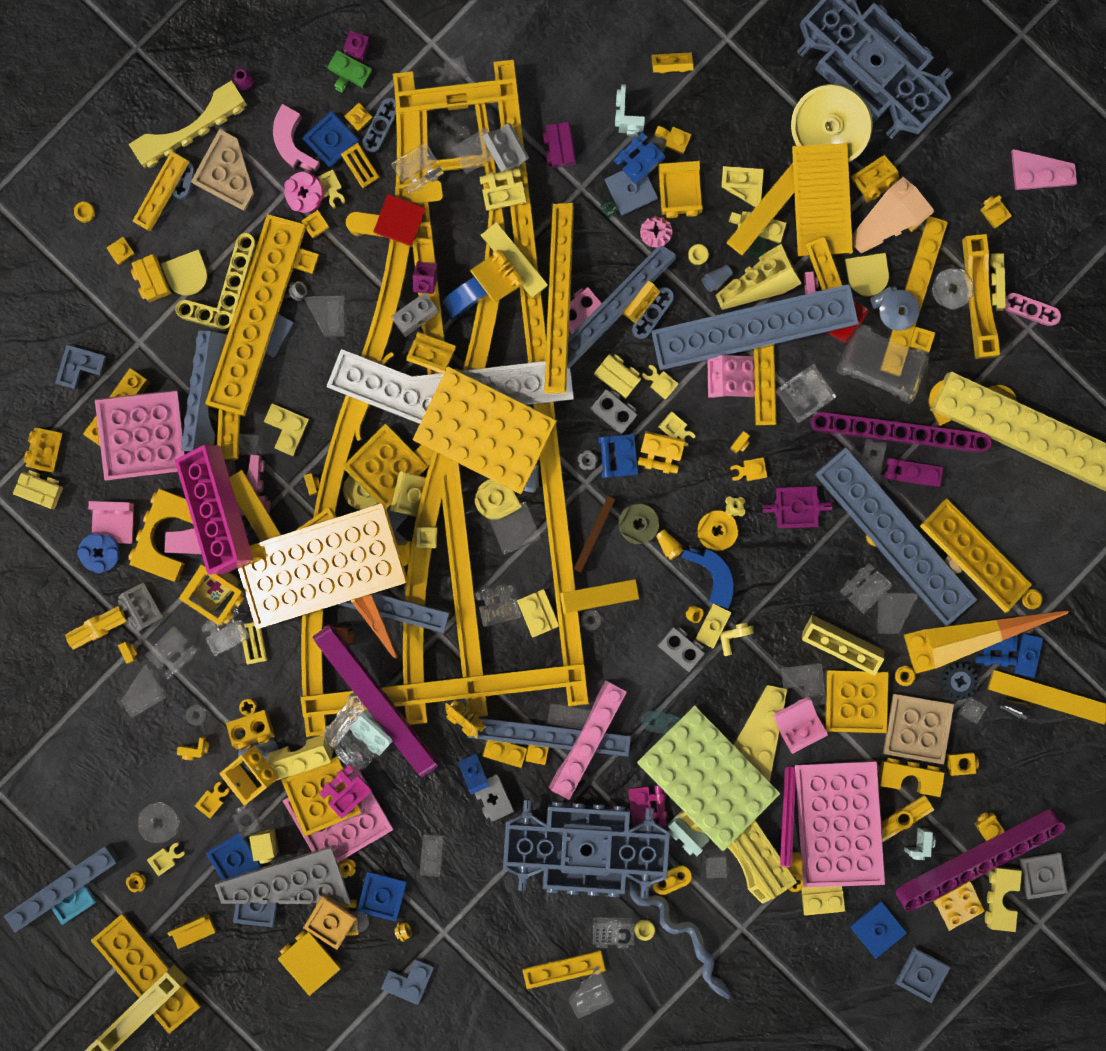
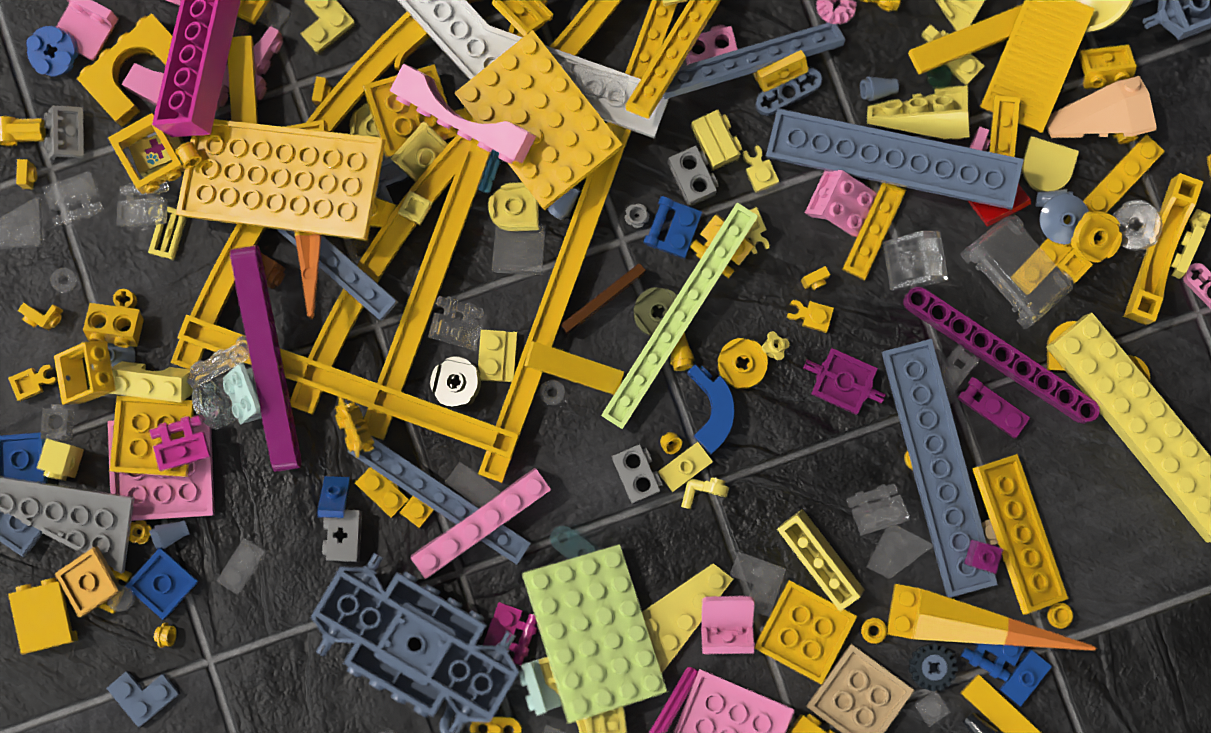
camera: 25 degrees right, 5 degrees down
(244, 582) = (188, 155): none -> yellow axle
(367, 859) = (167, 534): none -> sand blue cone
(386, 450) = (504, 137): none -> bright pink arch
(465, 482) = (489, 172): none -> dark azure axle
(525, 638) = (465, 392): none -> plate
(656, 520) = (679, 315): none -> yellowish green plate
(698, 254) = (870, 53): light yellow tile -> none
(919, 312) = (1087, 228): none -> yellow plate
(957, 586) = (983, 556): none -> magenta brick

